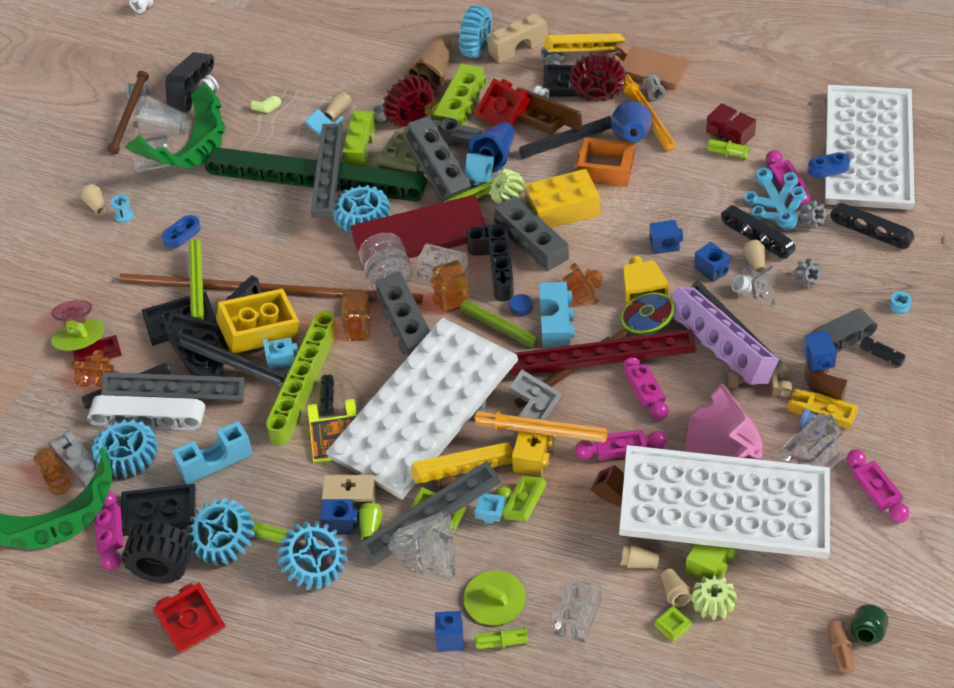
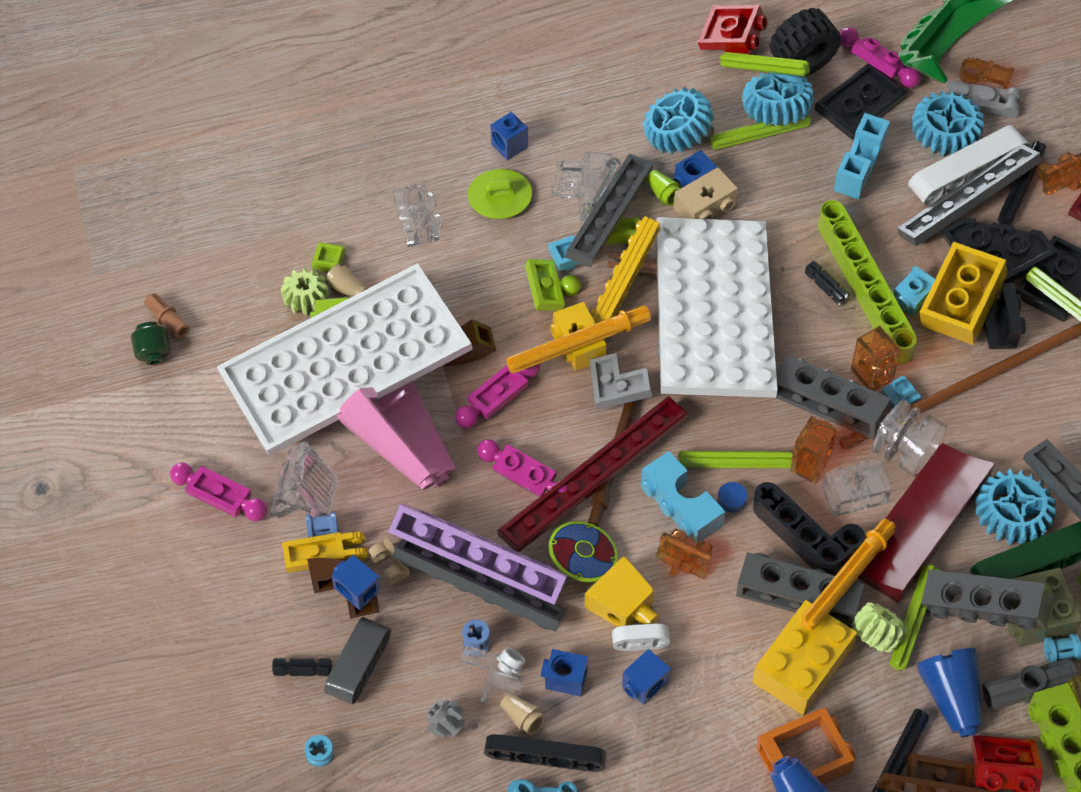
camera: 140 degrees right, 10 degrees up
(204, 557) = (764, 64): none -> lime axle
(231, 359) = (939, 253): black axle -> none
(326, 431) = (786, 251): flag -> none
(478, 168) = (938, 637): medium azure brick -> none
(500, 210) = (874, 542): none -> light orange axle
(501, 638) = (462, 161): lime axle -> none
(649, 253) = (640, 637): none -> white beam
(751, 306) = (477, 637): none -> medium blue bush

